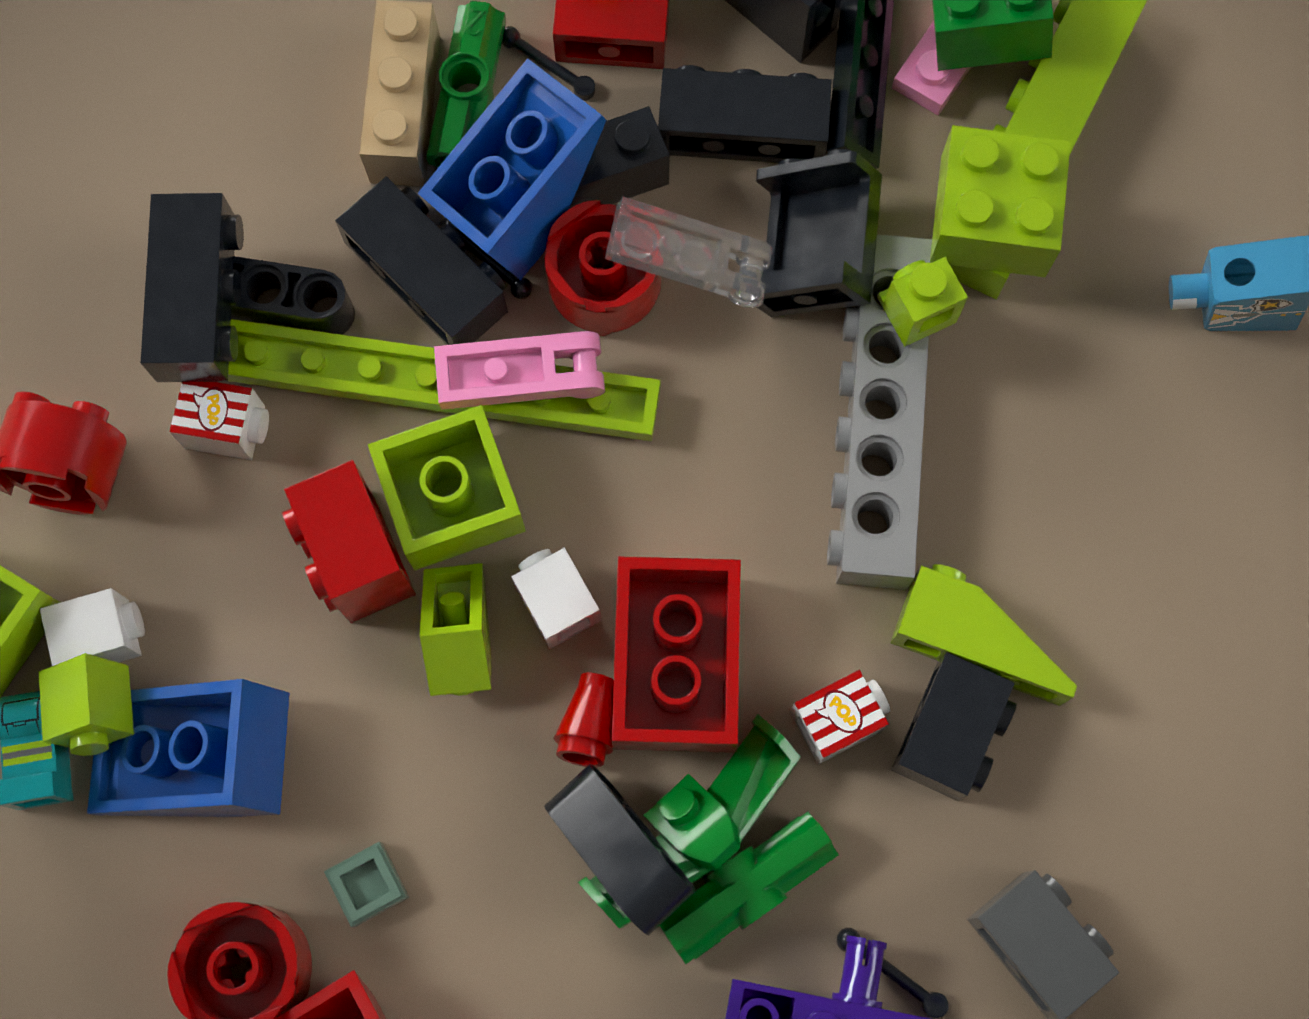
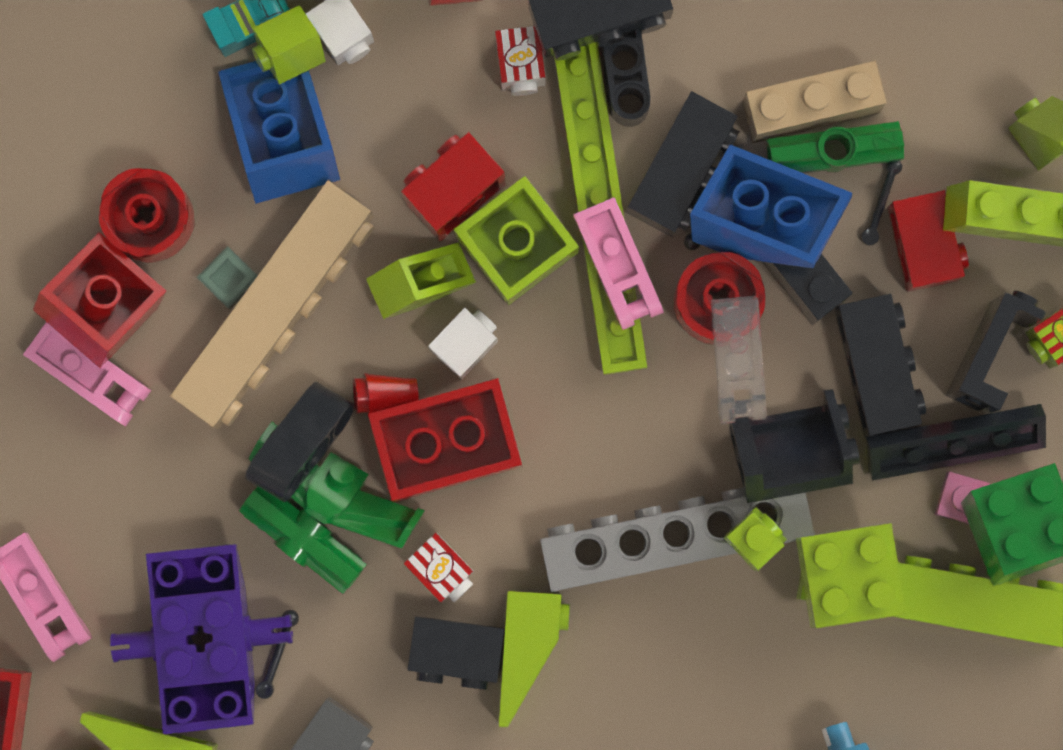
camera: 75 degrees right, 10 degrees up
(425, 834) = (273, 306): none -> tan brick

